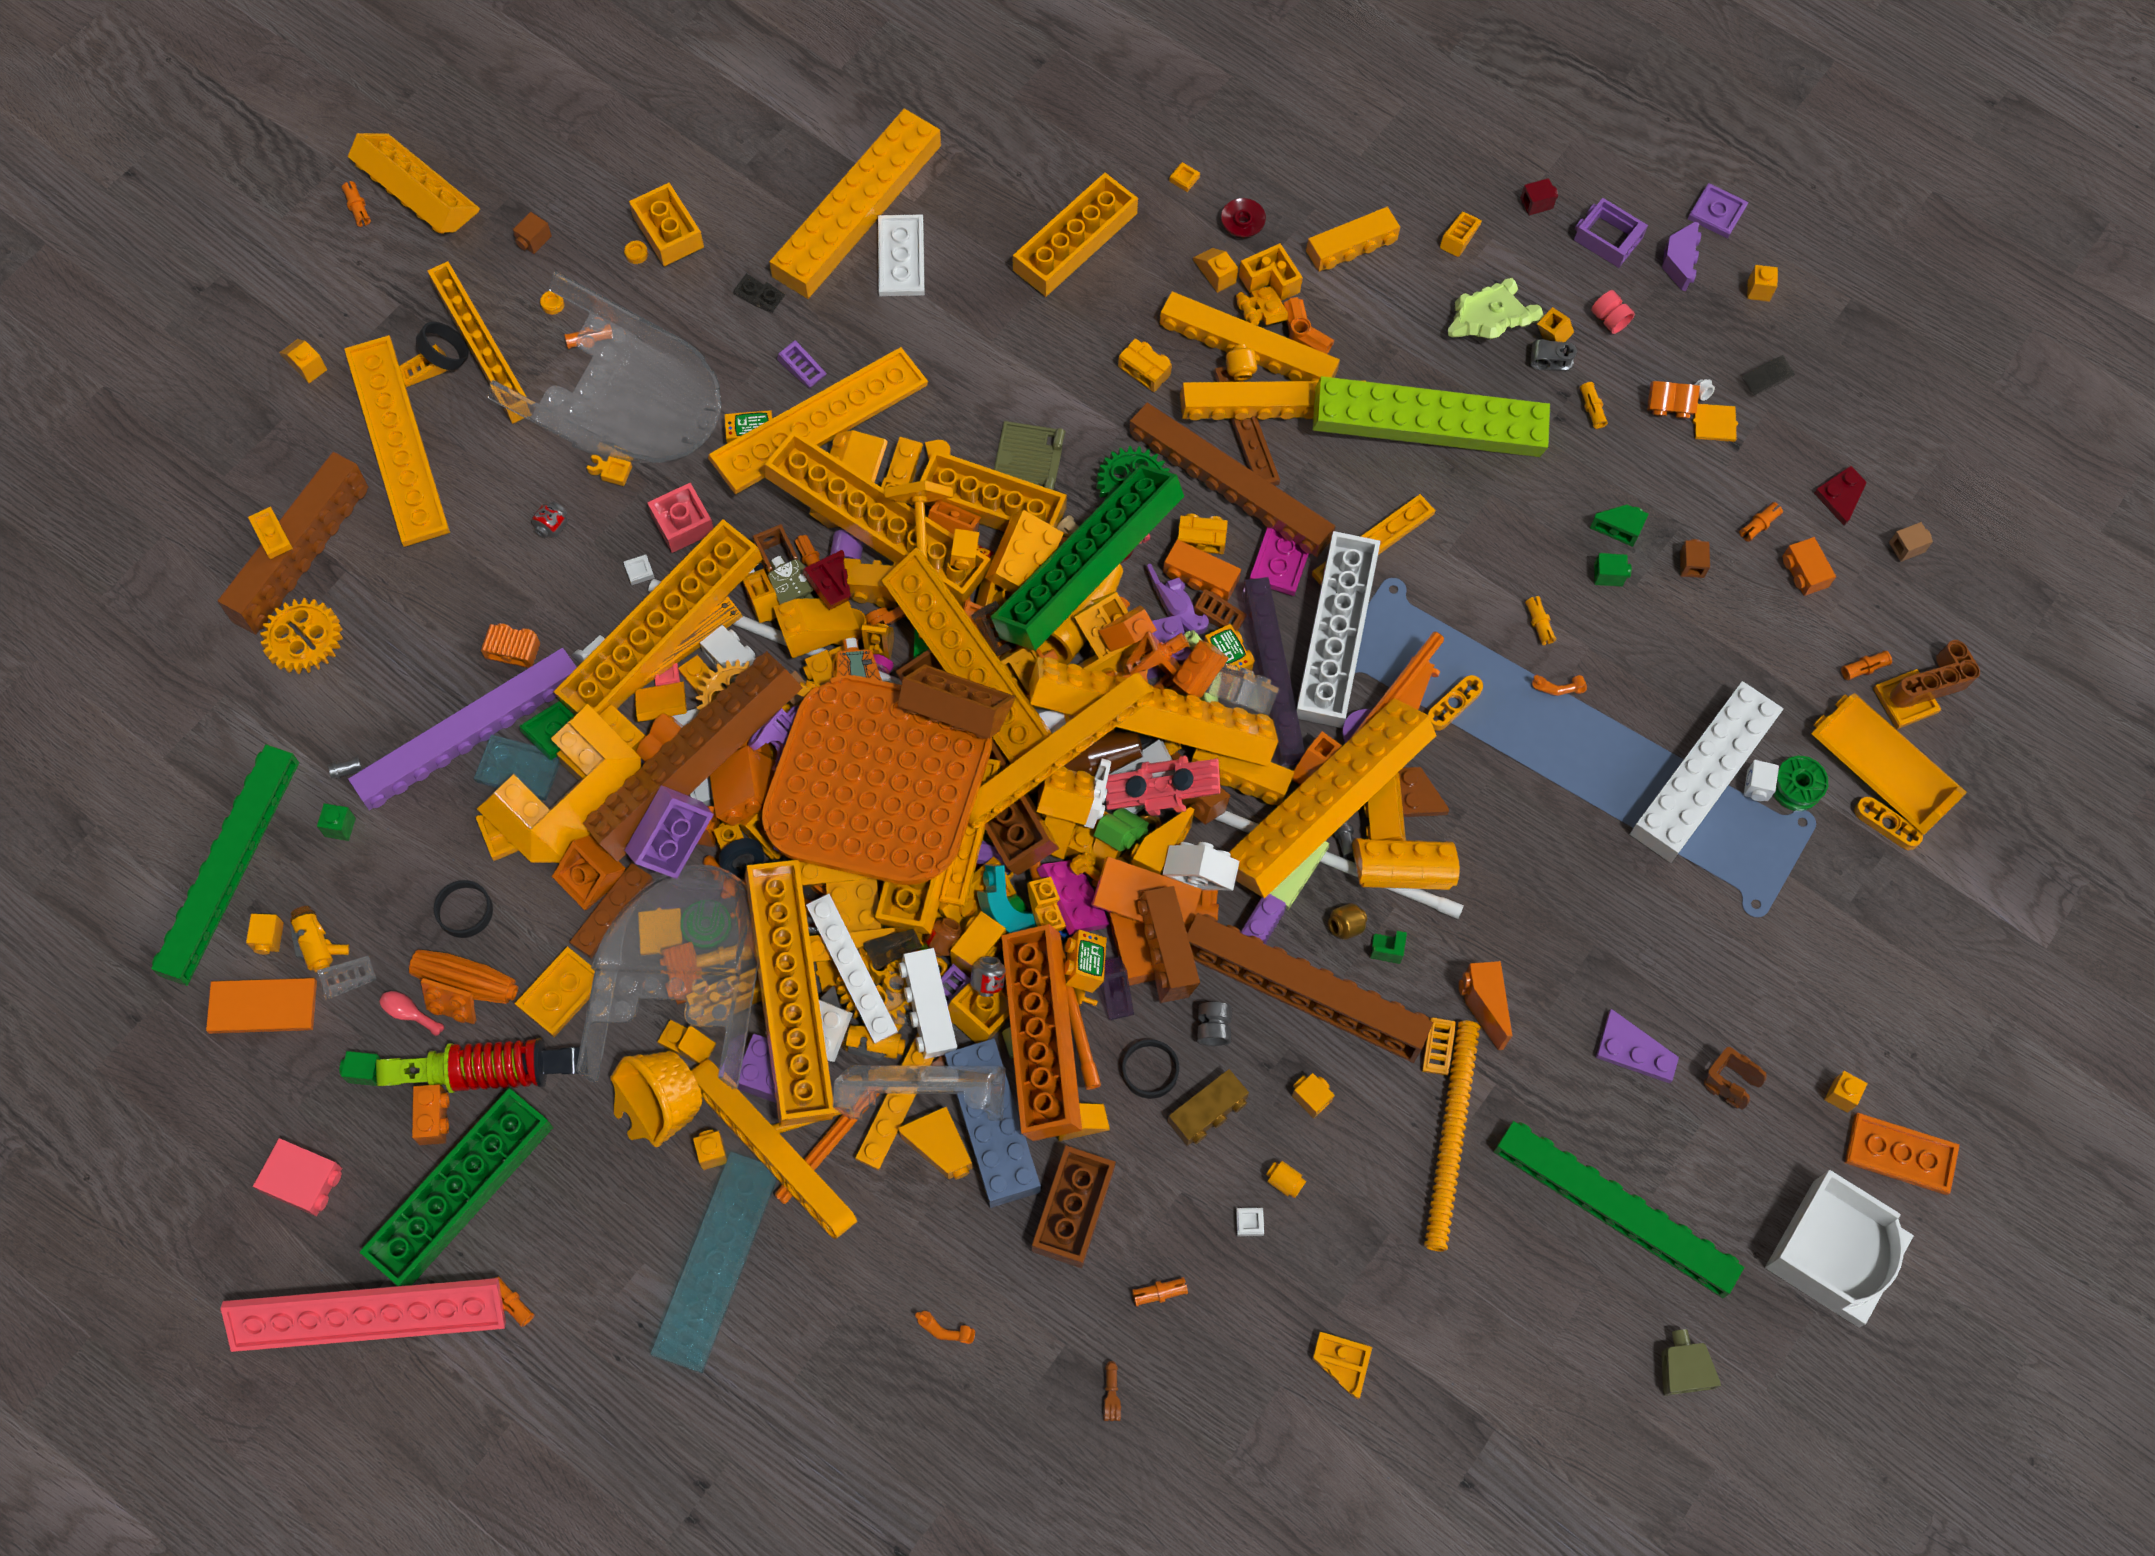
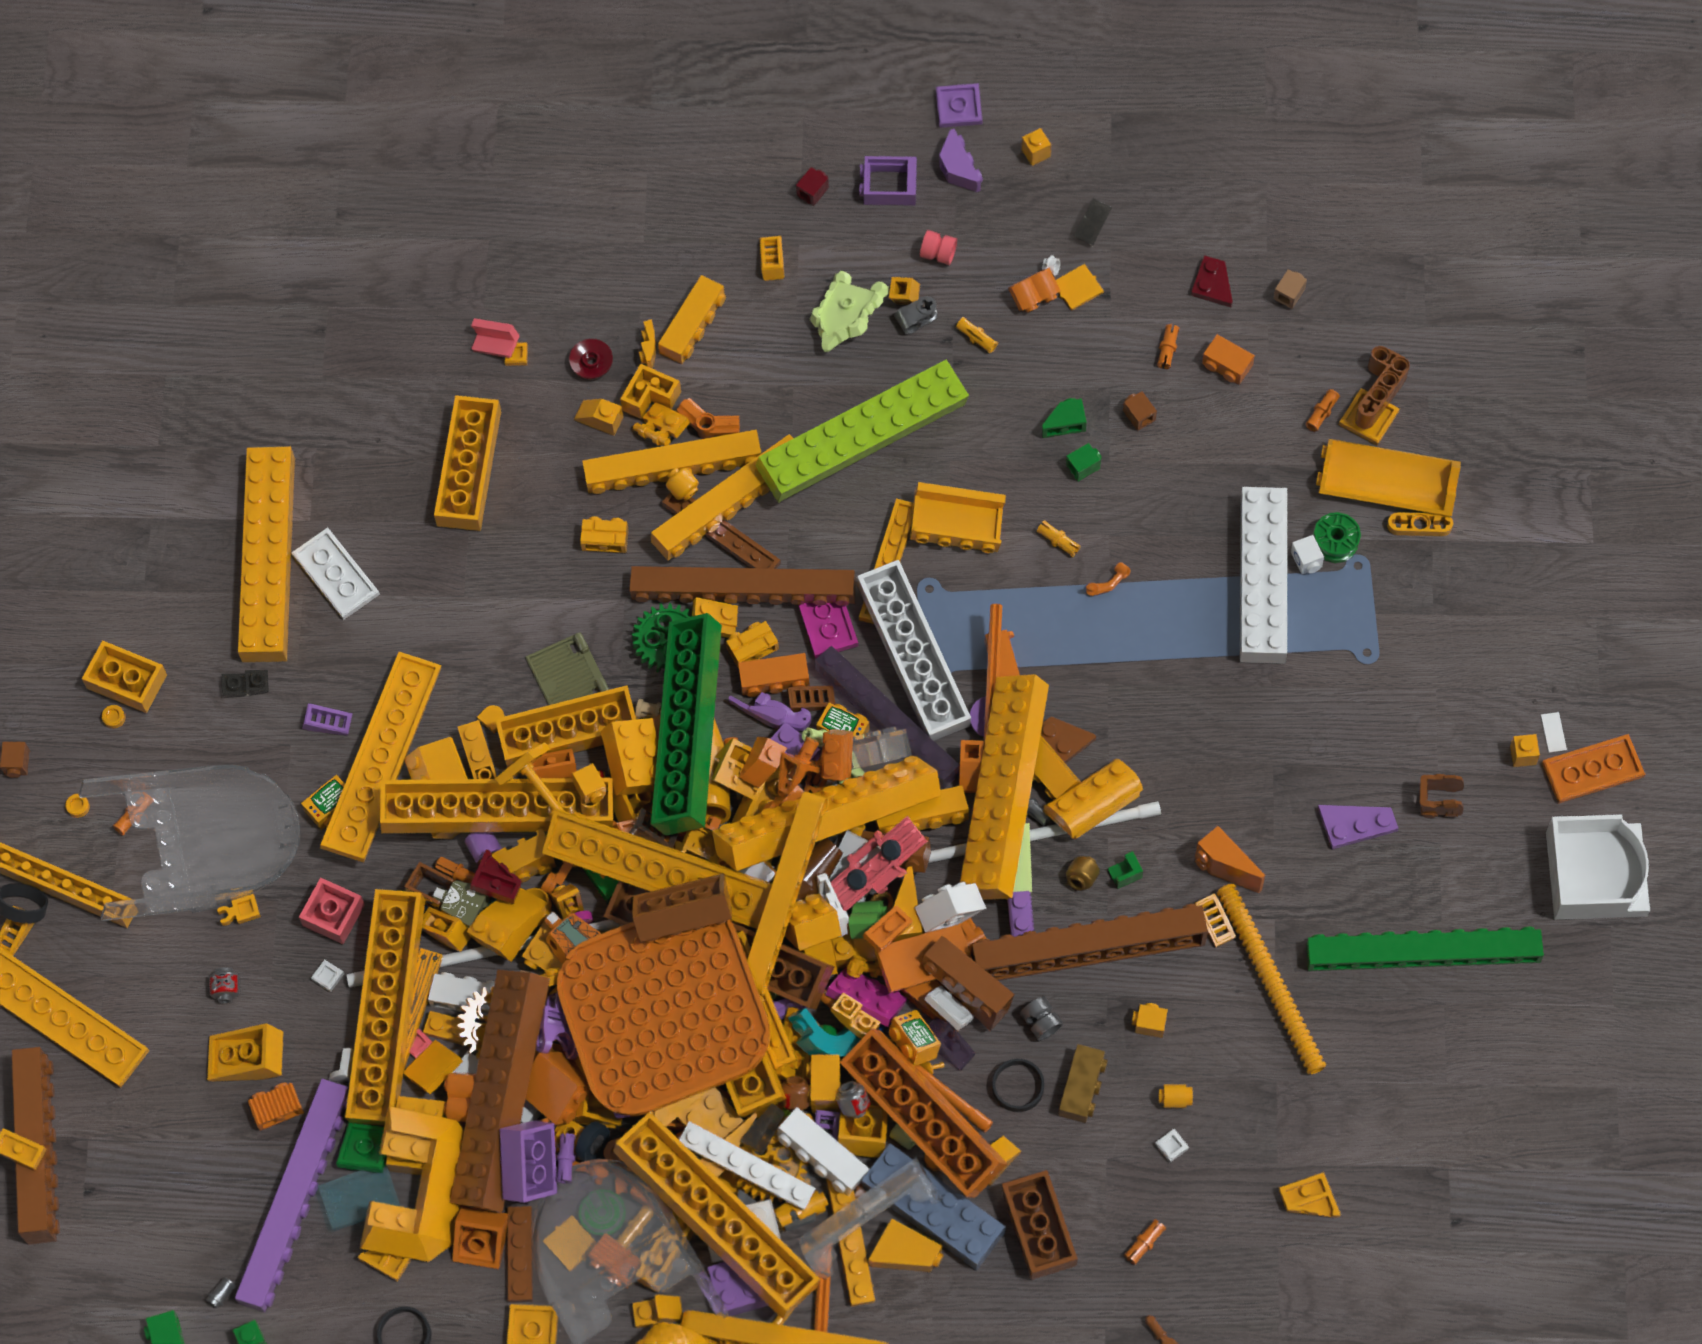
camera: 30 degrees left, 0 degrees up
(283, 650) = (104, 1194): light orange gear -> none
(522, 587) = (246, 1054): none -> light orange slope
(705, 853) = (565, 1158): none -> medium lavender pin
(1129, 847) = (887, 928): none -> orange plate
(1136, 955) = (949, 1007): none -> white tile
(1176, 152) = (494, 338): none -> coral panel
(1195, 491) = (724, 613): none -> light orange plate
(1299, 238) = (648, 351): none -> light orange slope
(1456, 692) = (1036, 639): light orange beam -> none
(1462, 543) = (957, 517): none -> light orange panel
(1687, 1366) = (1550, 1028): olive torso -> none
(1886, 1094) = (1553, 732): none -> white sticker

